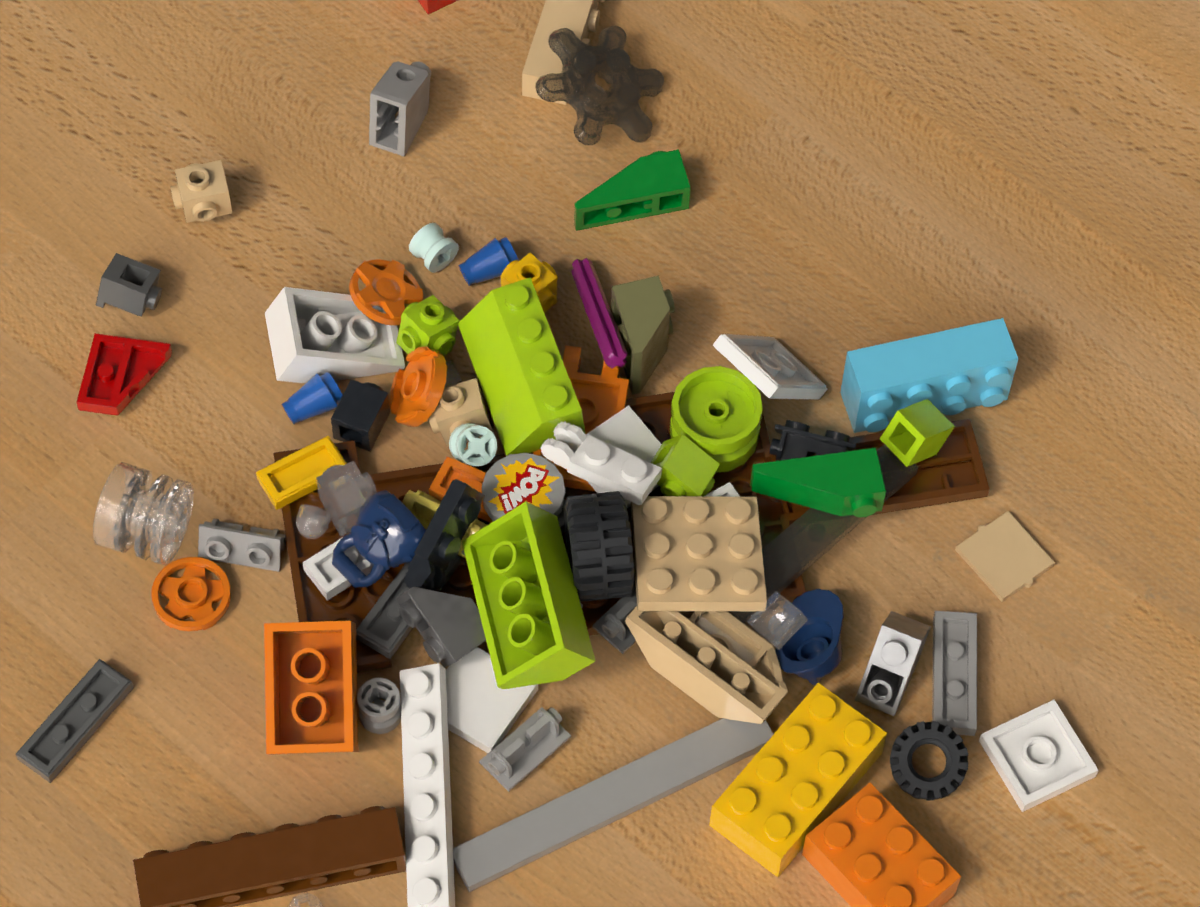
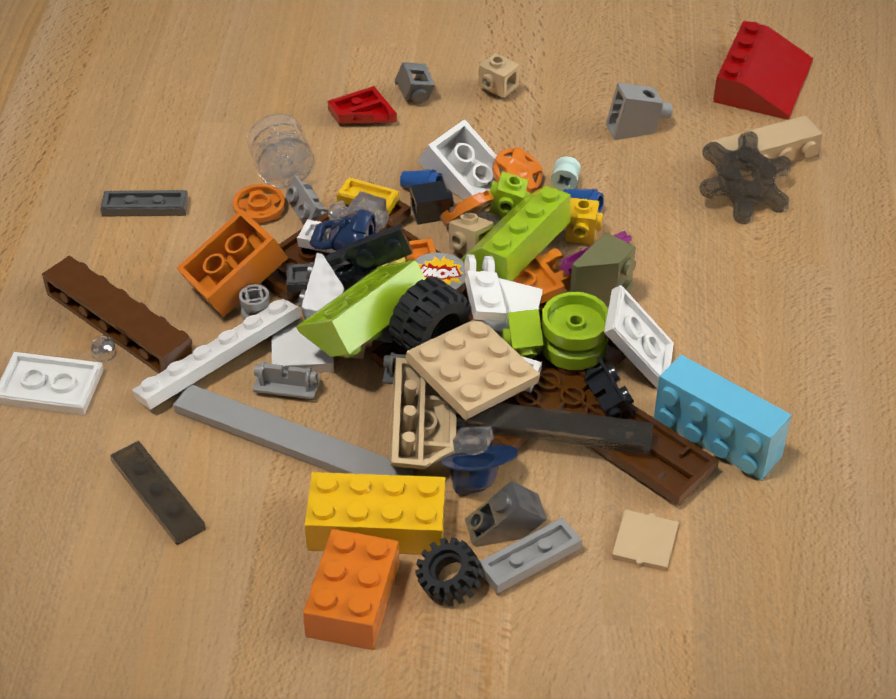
camera: 55 degrees right, 15 degrees down
(479, 450) = (446, 238): light aqua wheel -> none
(641, 190) = (696, 230): green slope -> none
(829, 482) = (589, 405): green slope -> none
(917, 432) = (670, 428): lime brick -> none
(1038, 755) = (515, 637): white tile -> none

